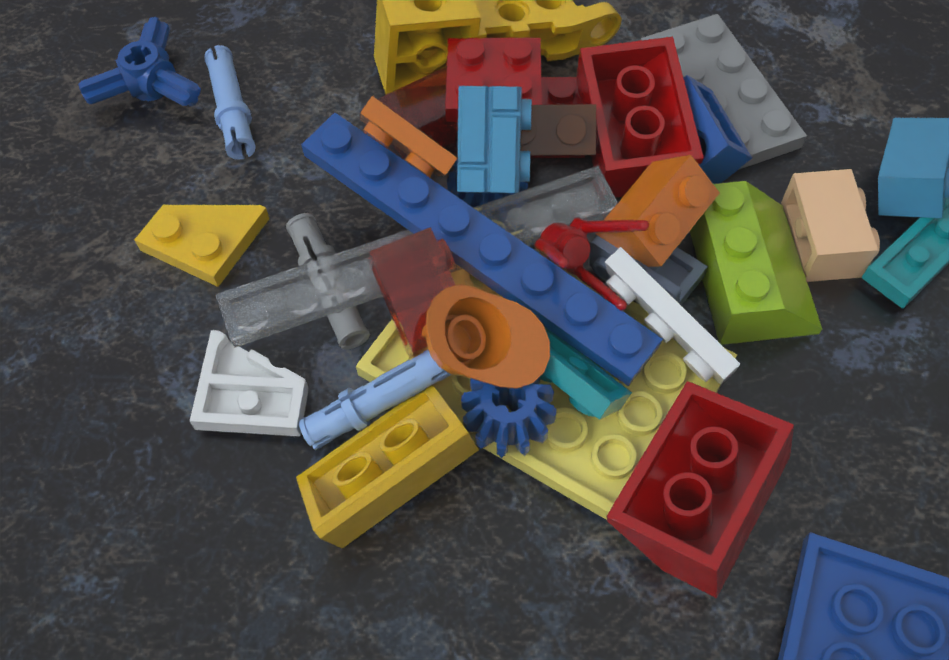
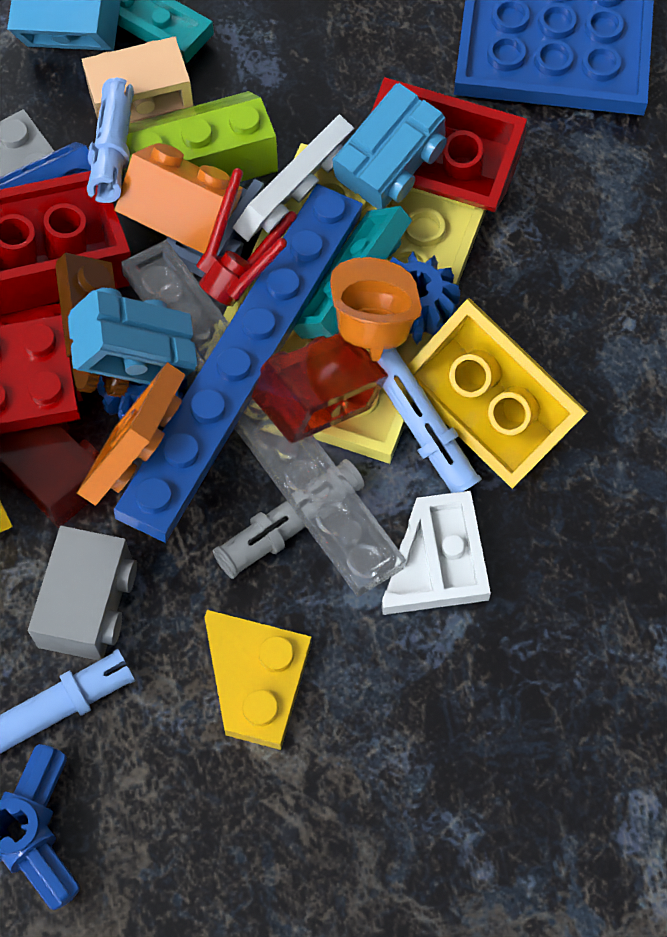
camera: 105 degrees left, 5 degrees up
(293, 114) = (82, 594): none -> light grey brick
(687, 405) = (390, 148): none -> dark azure brick
(733, 162) = (110, 150): none -> light blue pin

